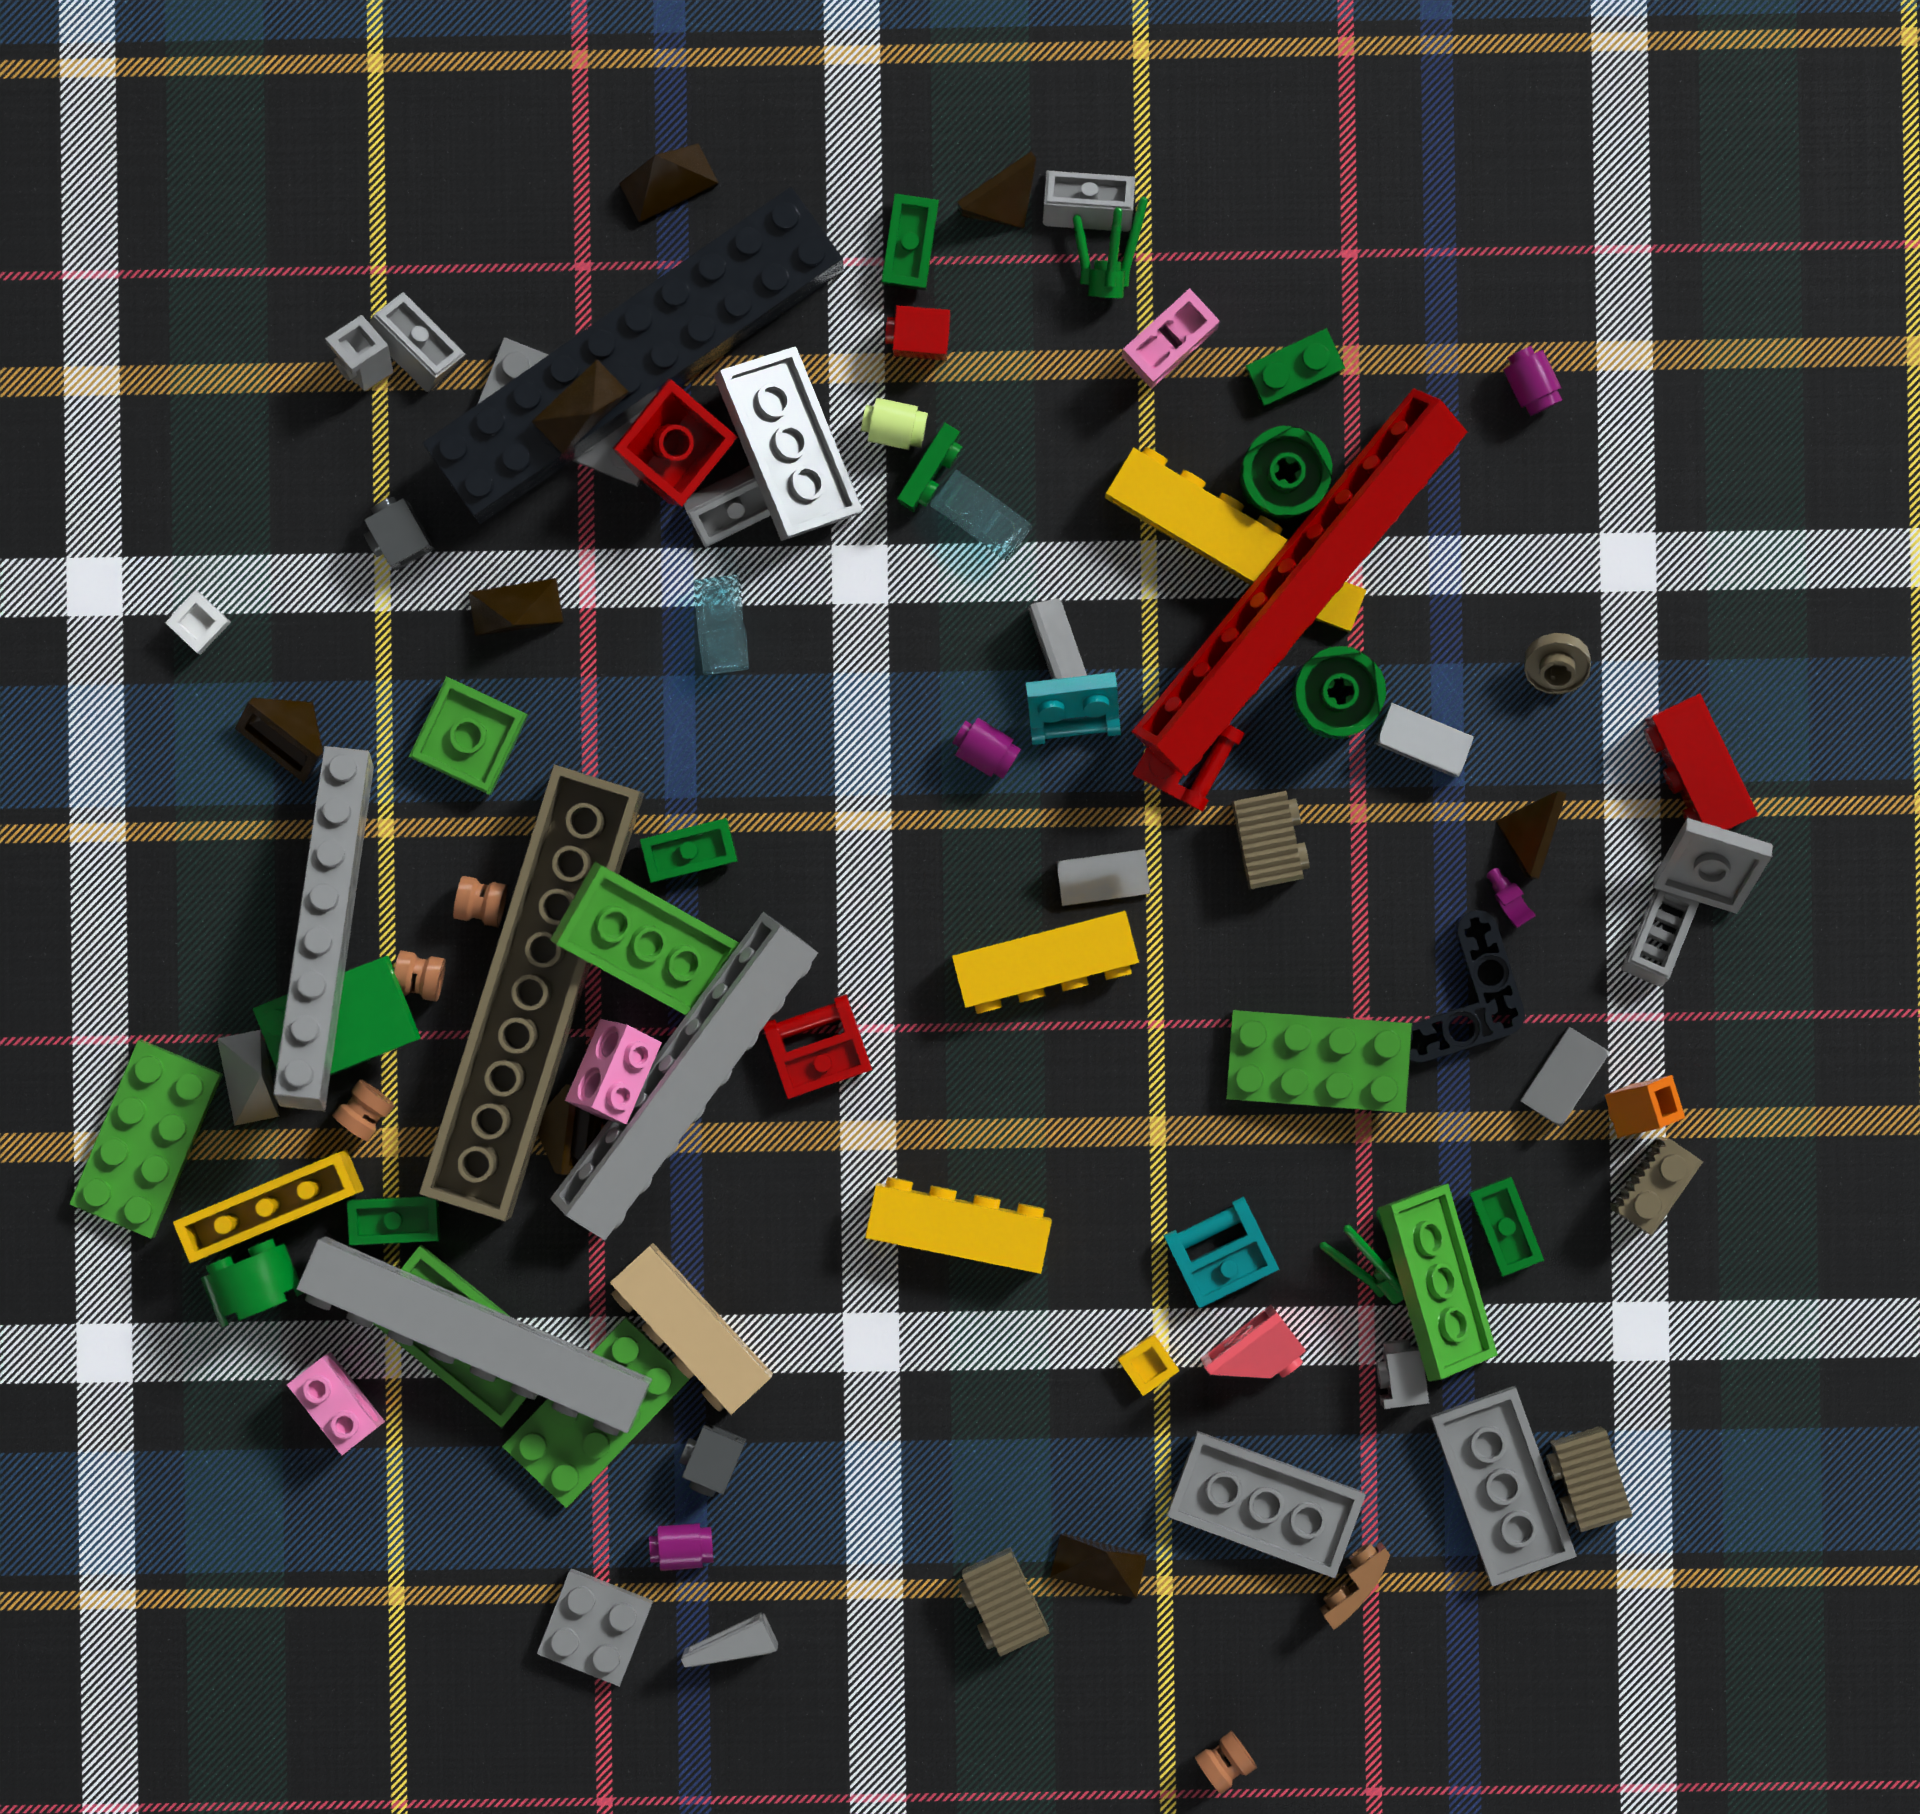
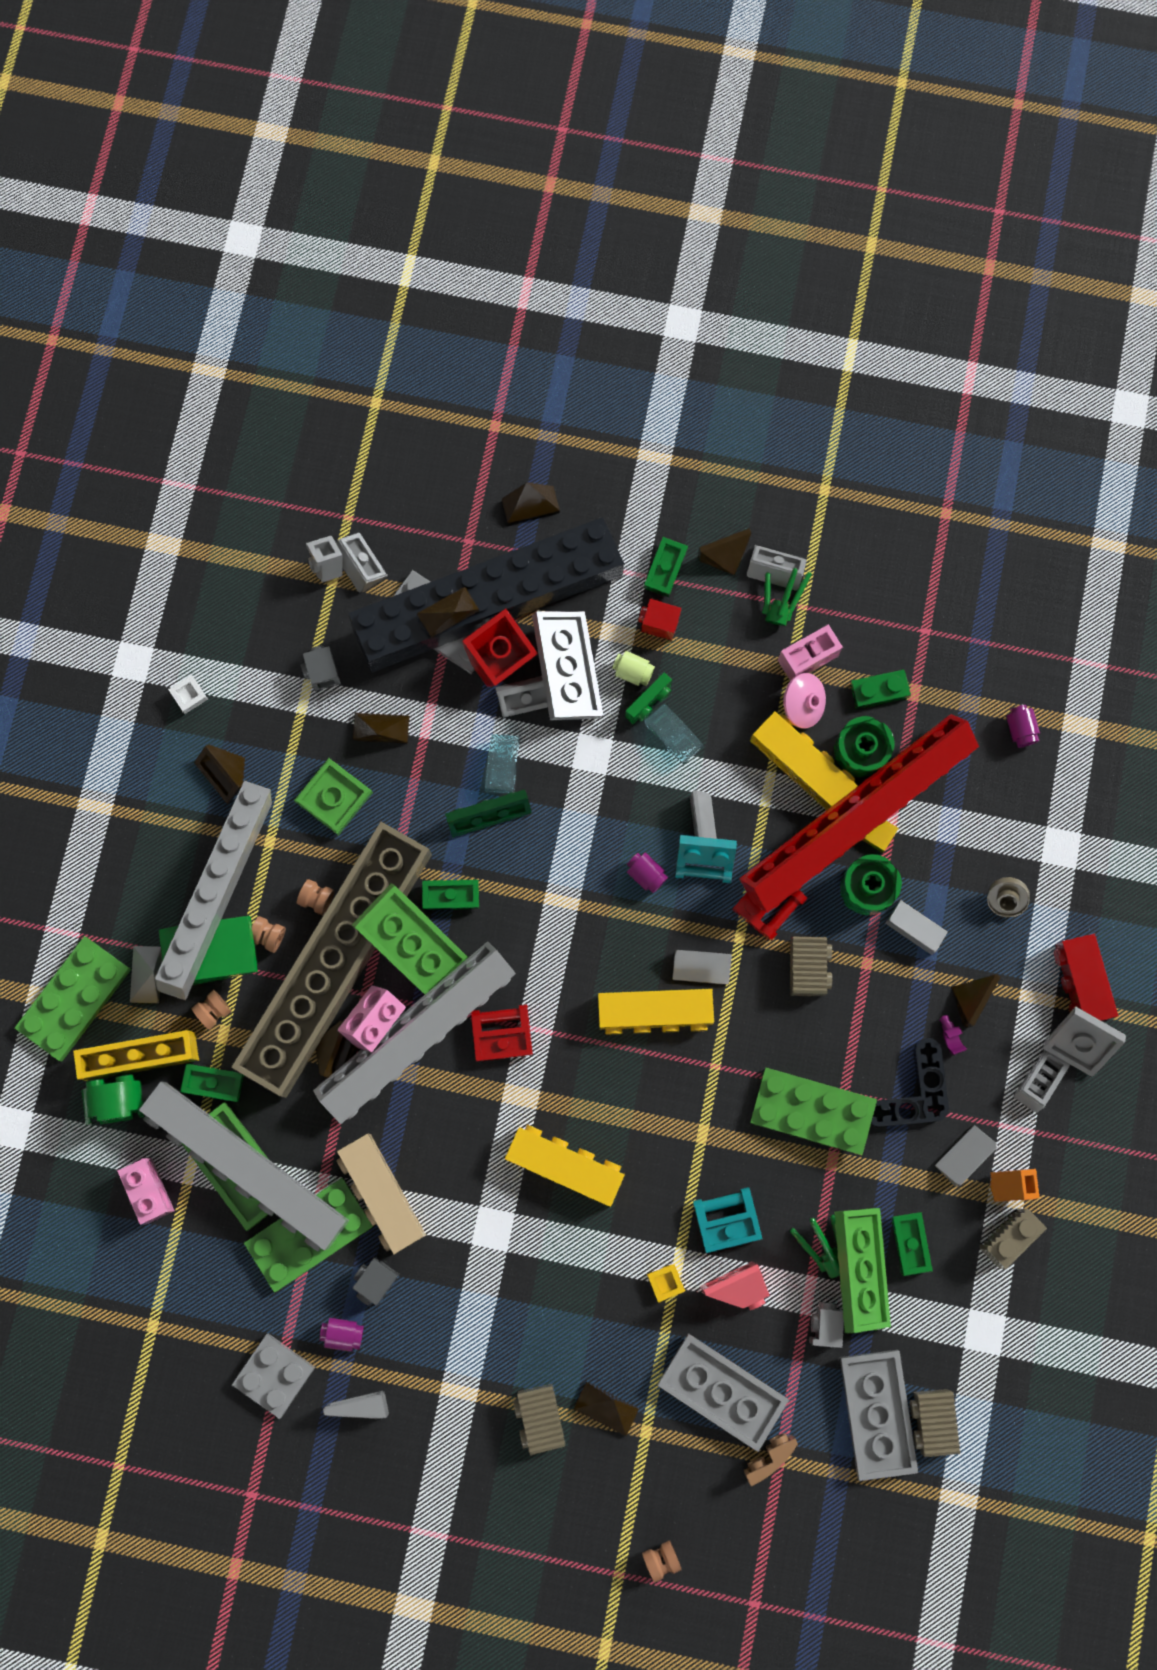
camera: 10 degrees right, 10 degrees down
(717, 709) = (488, 813): none -> dark green plate
(1177, 417) = (804, 700): none -> bright pink dish

